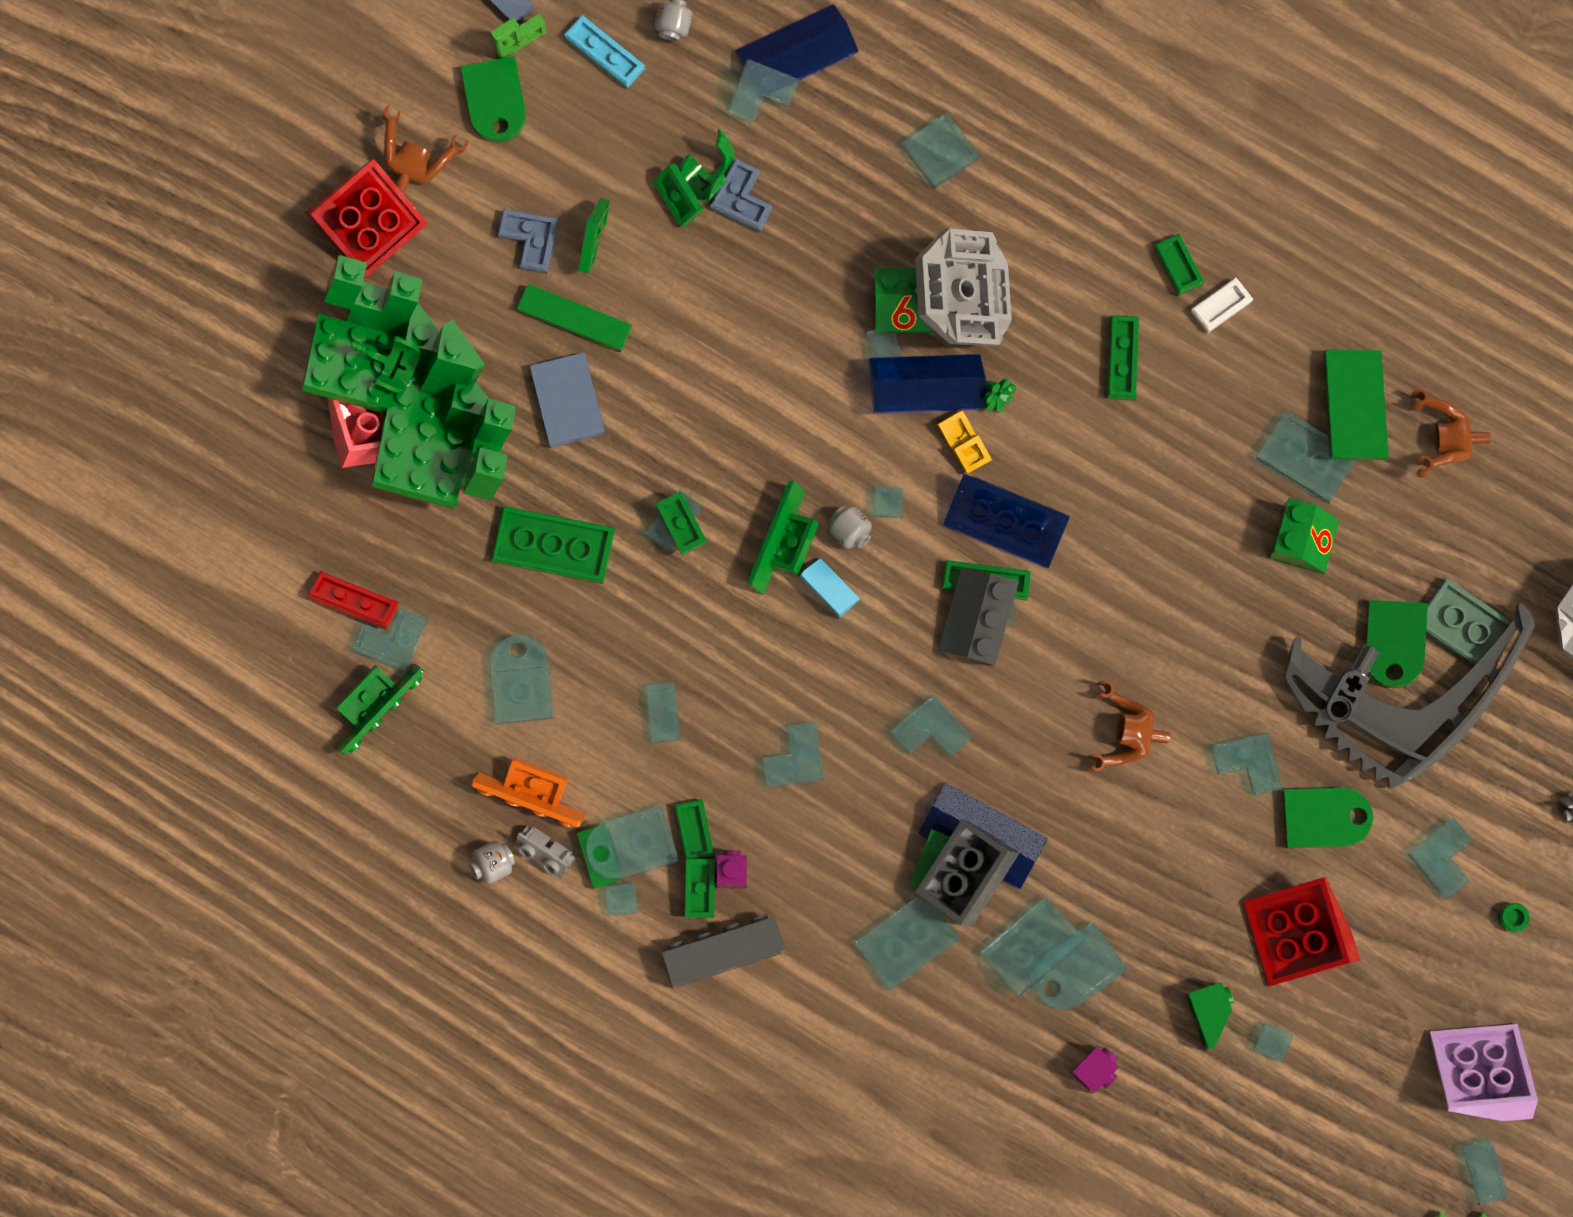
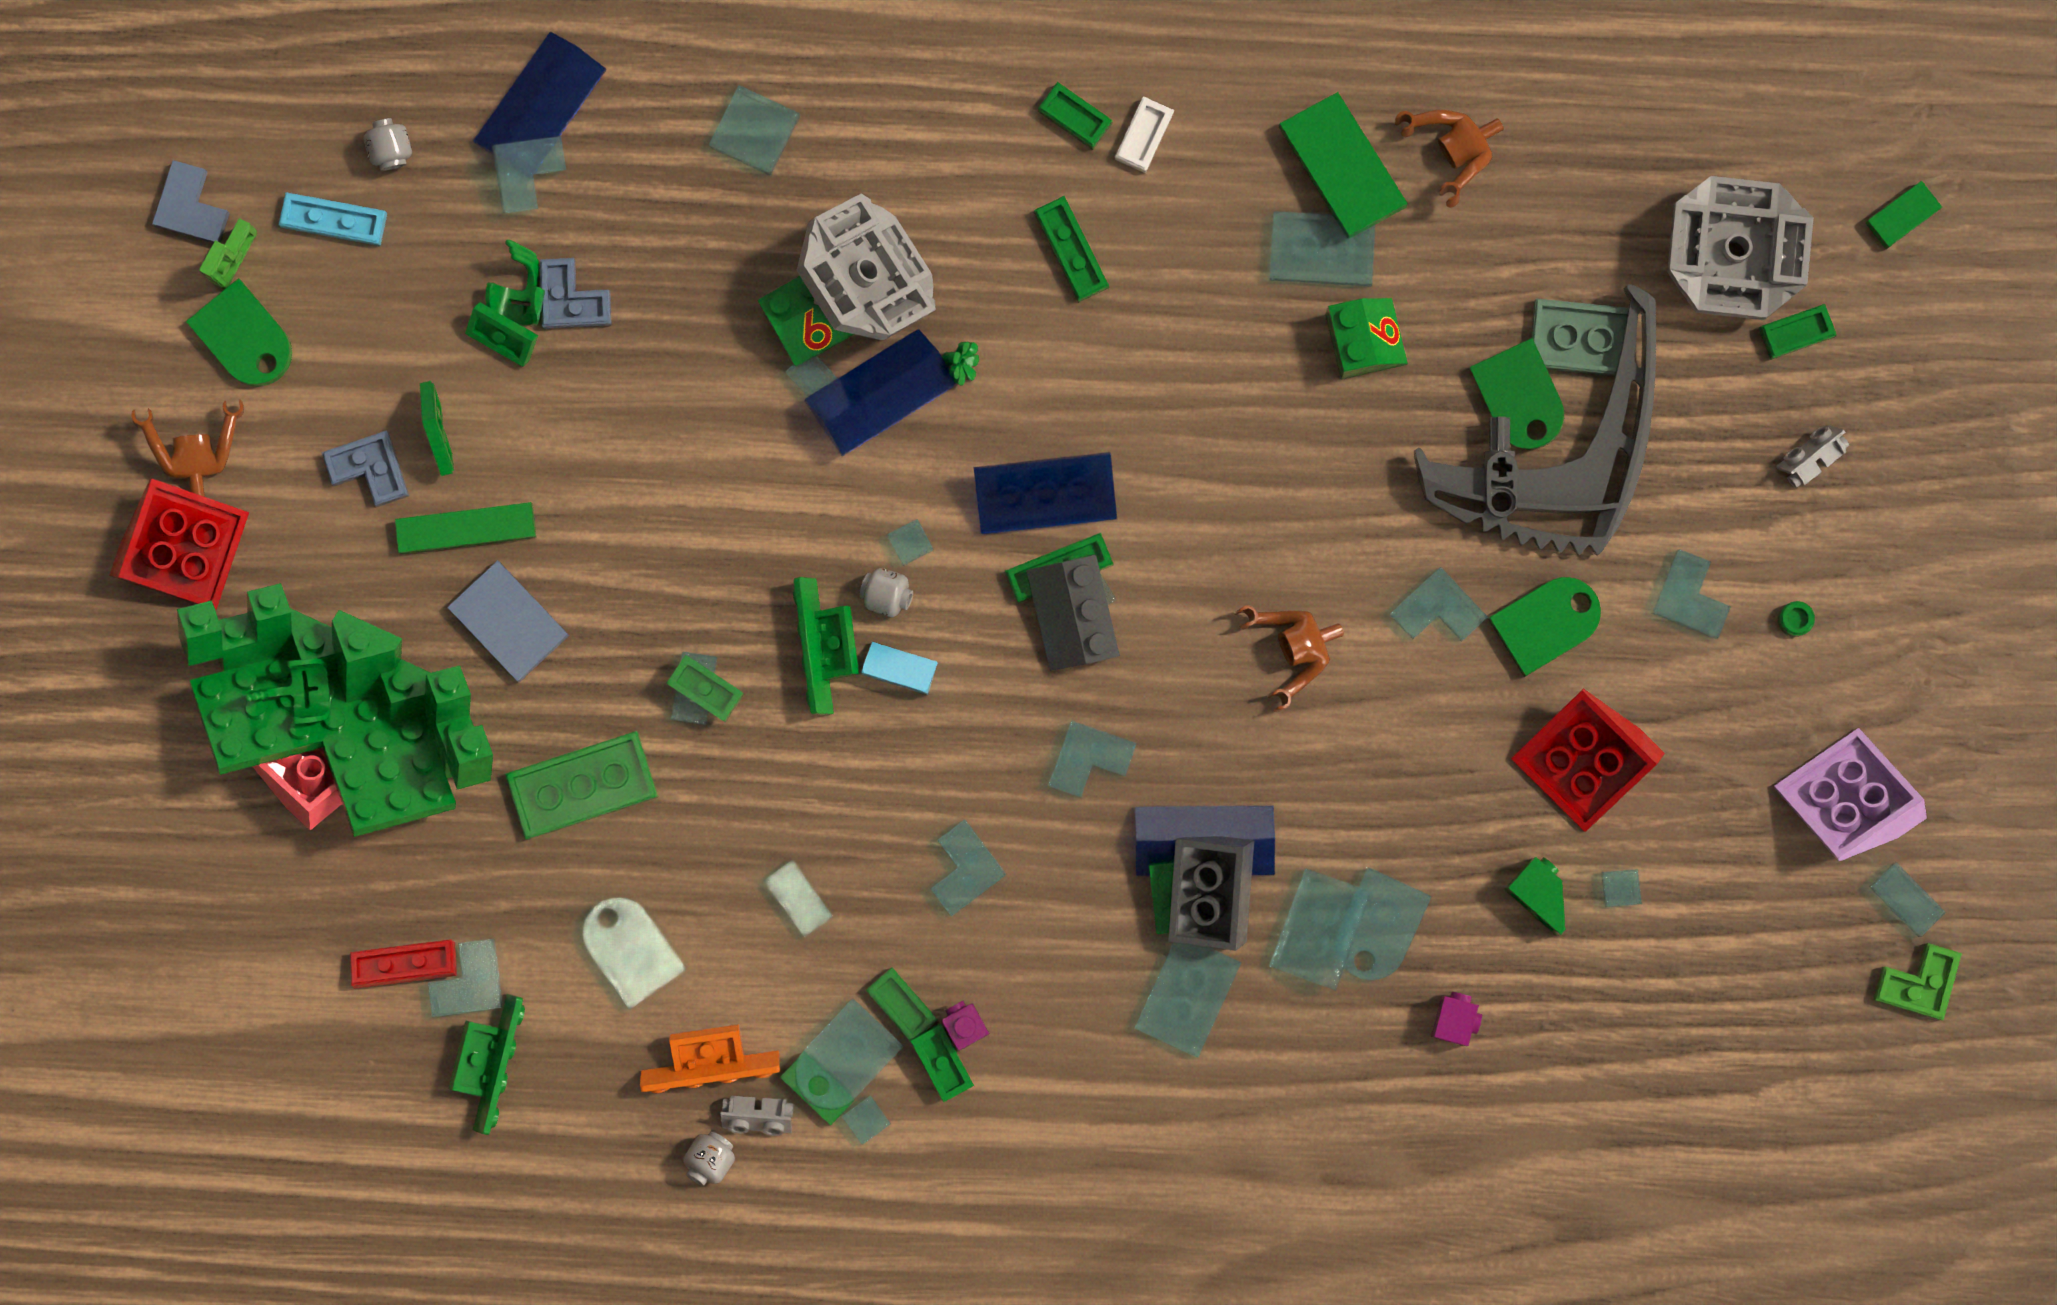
camera: 25 degrees left, 5 degrees up
(724, 951) = (1003, 1116): dark grey brick -> none
(964, 442) = (954, 433): yellow slope -> none

